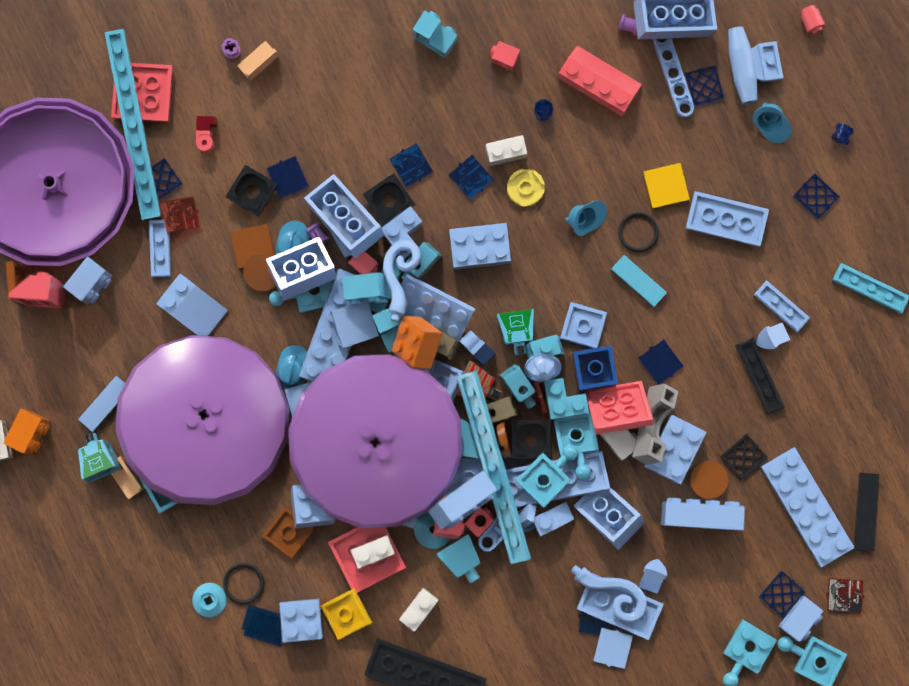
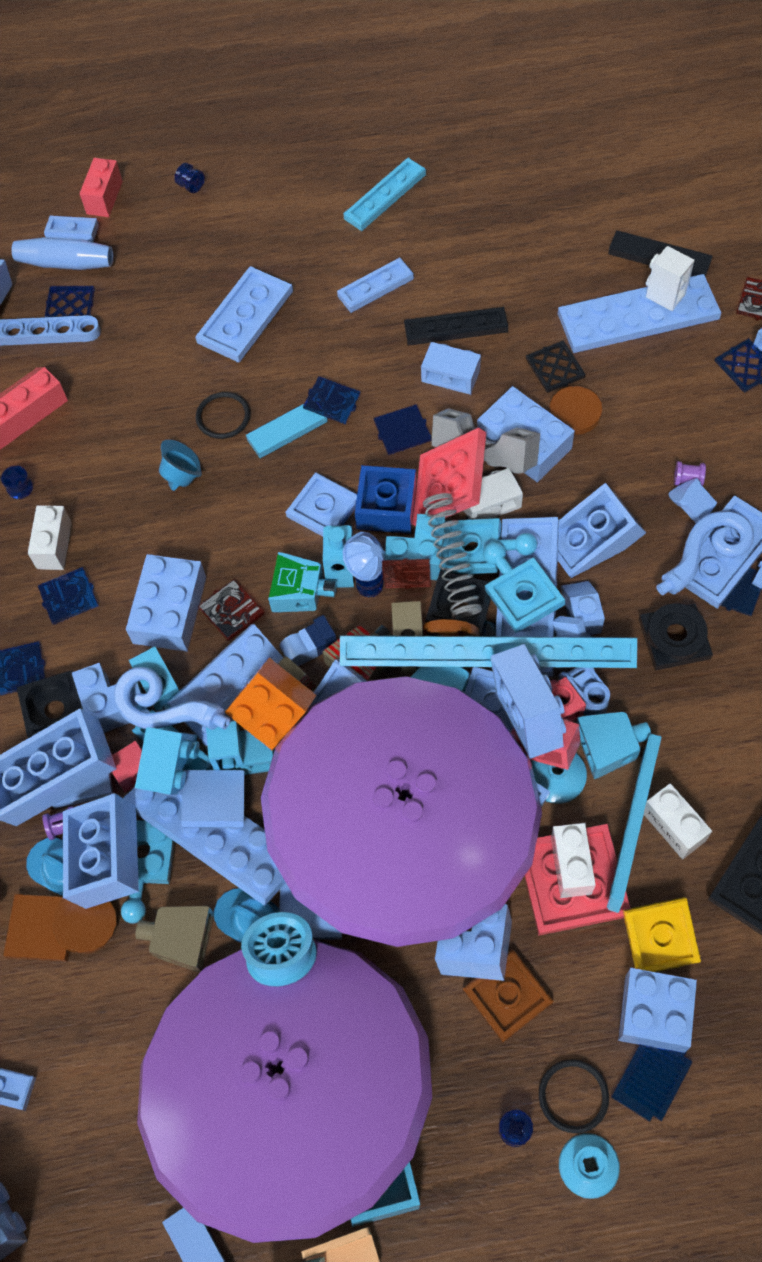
camera: 70 degrees left, 20 degrees down
(192, 306) = (94, 1053): light blue slope -> none
(213, 552) = (511, 1131): none -> clear blue wheel
(269, 330) = (179, 935): none -> dark tan torso
(281, 401) = (279, 949): none -> medium azure wheel
(410, 583) = (633, 824): none -> medium azure tile
(489, 288) = (231, 610): none -> piece
(514, 379) = (372, 598): medium azure torso -> none
(523, 445) = (464, 611): none -> light grey piece
(525, 187) = (111, 531): light yellow tile -> none
(533, 583) = (670, 653): none -> black piece
(666, 186) = (176, 370): yellow tile -> none
(669, 305) = (331, 400): none -> clear blue piece
(674, 570) = (688, 472): none -> medium lavender bush
(702, 515) = (621, 417): light blue brick -> none
(718, 383) = (450, 368): none -> light blue brick
(772, 123) = (146, 238): dark azure piece -> none
(772, 336) = (411, 299): light blue tile -> none
(812, 20) = (42, 178): coral brick -> none
(813, 70) = (101, 187): none -> coral brick
(816, 196) = (249, 211): clear blue window -> none
(827, 522) = (669, 278): none -> white brick

